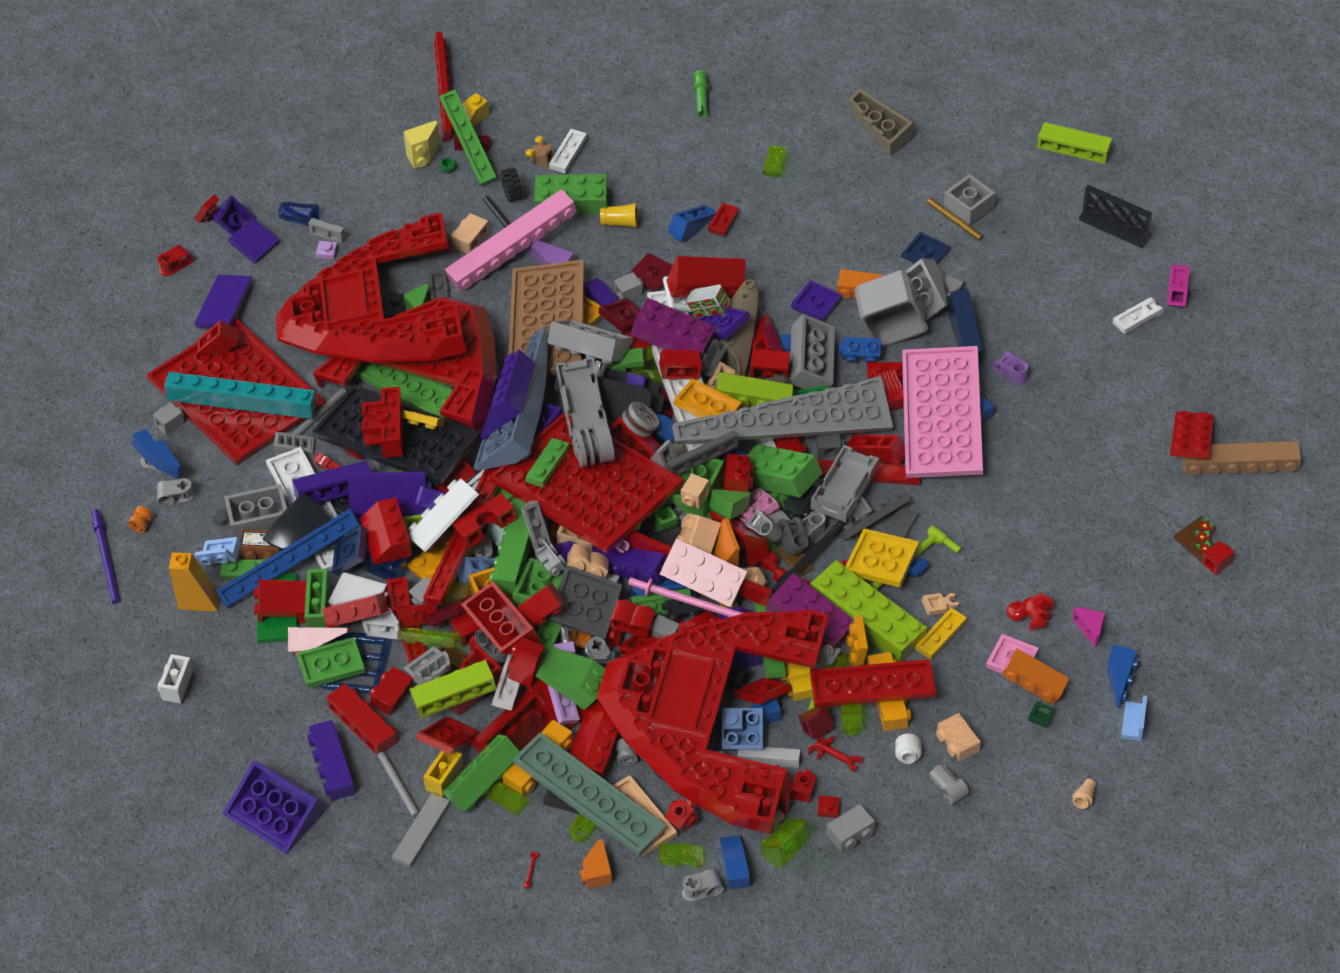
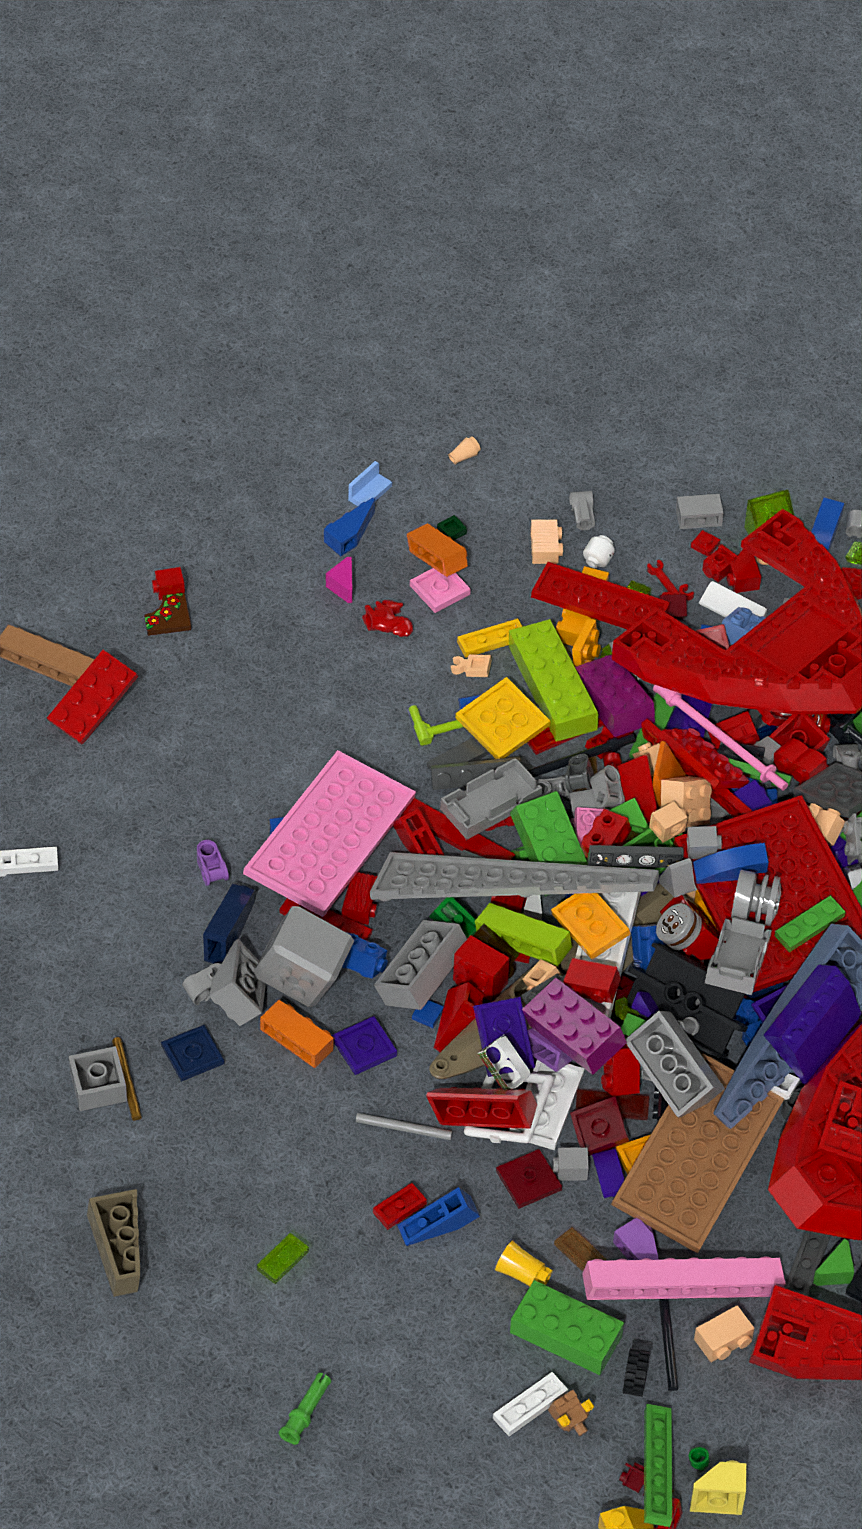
camera: 155 degrees left, 0 degrees up
(591, 246) = (577, 1248): none -> clear orange tile
(625, 469) = (728, 863): none -> blue slope
(657, 473) = (702, 841): none -> light grey brick
(767, 266) = (404, 1126): none -> light grey bar

